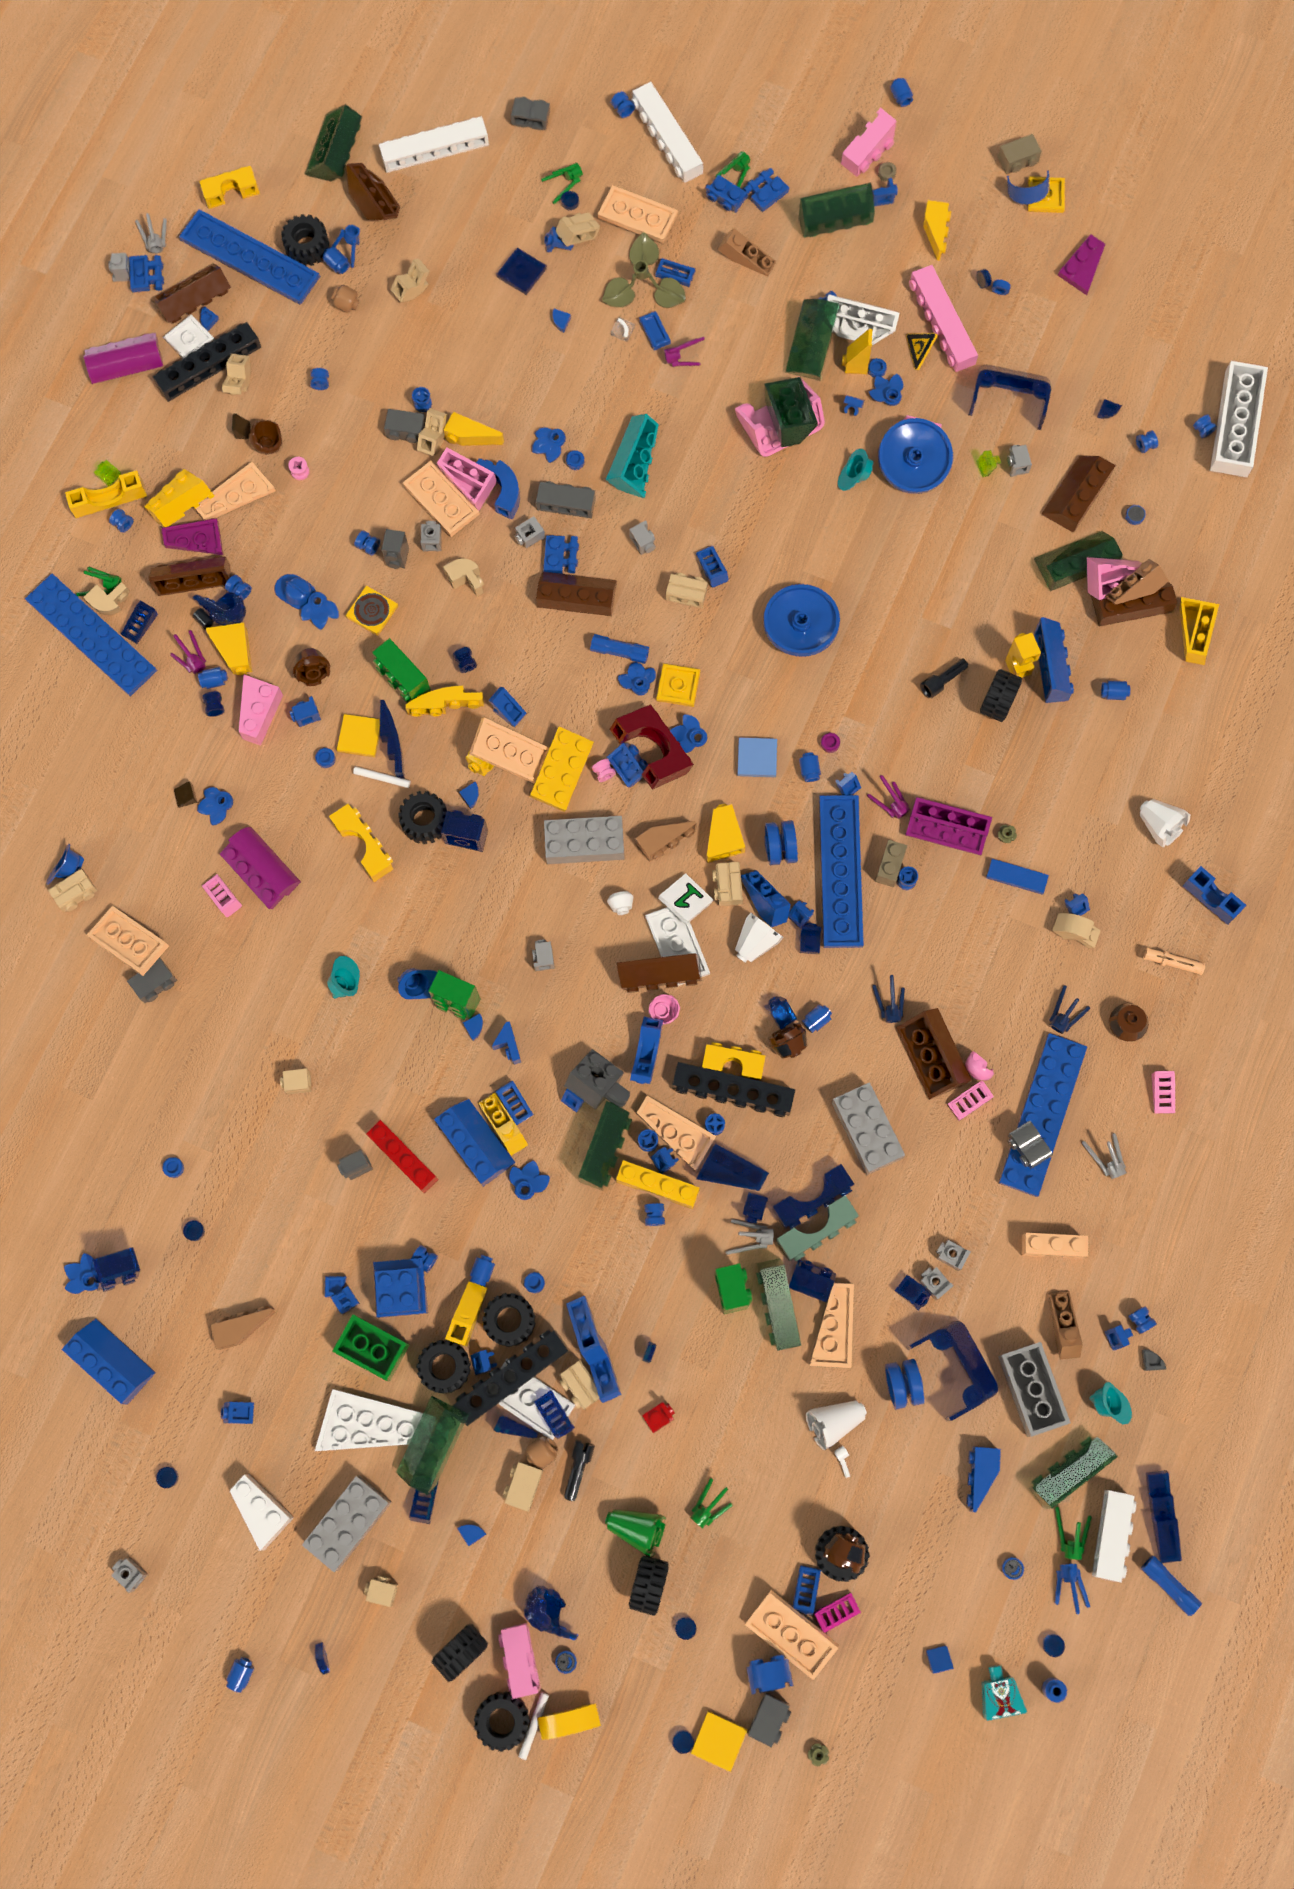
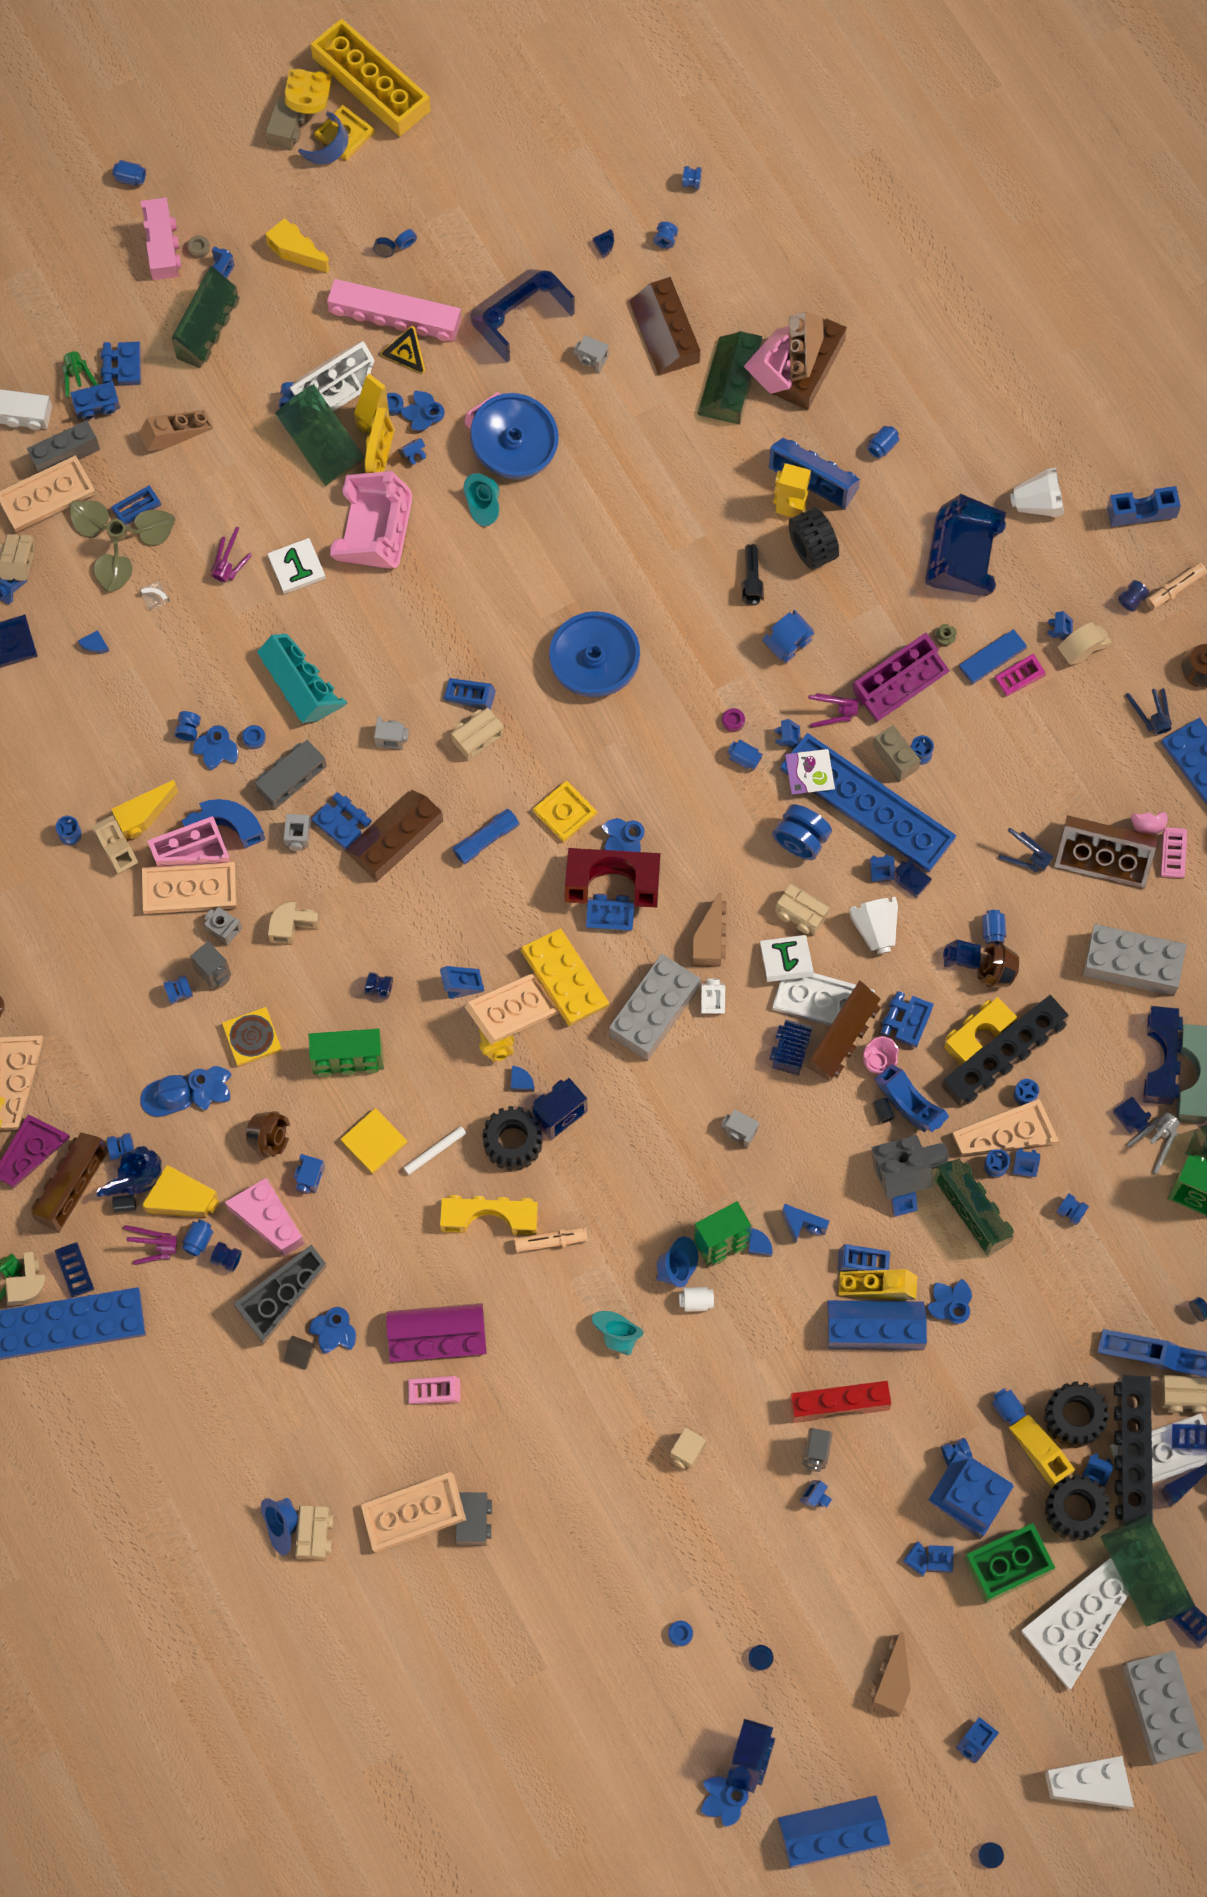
camera: 55 degrees left, 5 degrees down
(206, 752) = (278, 1294): none -> dark grey wedge
(298, 473) = (42, 1003): bright pink wheel -> none
(325, 758) = (370, 1190): blue tile -> none
(327, 1186) = (815, 1495): none -> blue tile
(382, 899) = (551, 1239): none -> light nougat pin
(389, 734) = (397, 1109): clear blue slope -> none
(404, 425) = (83, 866): dark grey brick -> none
(404, 1013) = (696, 1299): none -> white brick
(437, 701) = (401, 1040): yellow slope -> none
(534, 1282) = (1055, 1367): blue tile -> none
(548, 414) = (187, 726): none -> blue wheel
(603, 770) = (598, 939): bright pink wheel -> none
(621, 902) = (744, 1019): white cone -> none
(622, 871) = (712, 996): none -> white bracket
(625, 947) = (791, 1047): none -> clear blue brick
(628, 1039) = (883, 1110): none -> black hinge
(637, 676) = (525, 842): blue plate -> none
(655, 330) = (181, 568): blue tile -> none
(659, 1184) = (1046, 1183): yellow arch -> none
(688, 203) = (74, 441): none -> dark grey brick
(707, 1013) = (913, 1022): none -> blue plate
(713, 396) = (296, 566): none -> white tile
(725, 834) = (749, 877): yellow slope -> none
(731, 1169) = (1081, 1108): clear blue wedge -> none
(757, 757) = (695, 794): medium blue tile -> none
(767, 900) = (846, 886): blue slope -> none
(790, 410) = (380, 507): clear green slope -> none
(831, 817) = (810, 771): none -> sticker
(837, 378) = (379, 442): none -> yellow plate
(917, 731) = (788, 636): none -> blue brick
(987, 463) = (572, 381): clear neon green tile -> none
(1021, 898) = (1023, 664): none -> dark pink slope
(1053, 148) = (307, 91): none -> yellow plate
(1081, 799) = (963, 546): none -> clear blue windscreen
(1083, 264) = (443, 155): magenta wing -> none
(1098, 178) = (370, 77): none -> yellow brick
(1135, 515) = (727, 298): tile -> none
(1141, 937) = (1133, 596): none -> clear blue wheel
(1197, 628) = (882, 330): yellow wedge -> none
(1239, 419) = (710, 144): white brick -> none

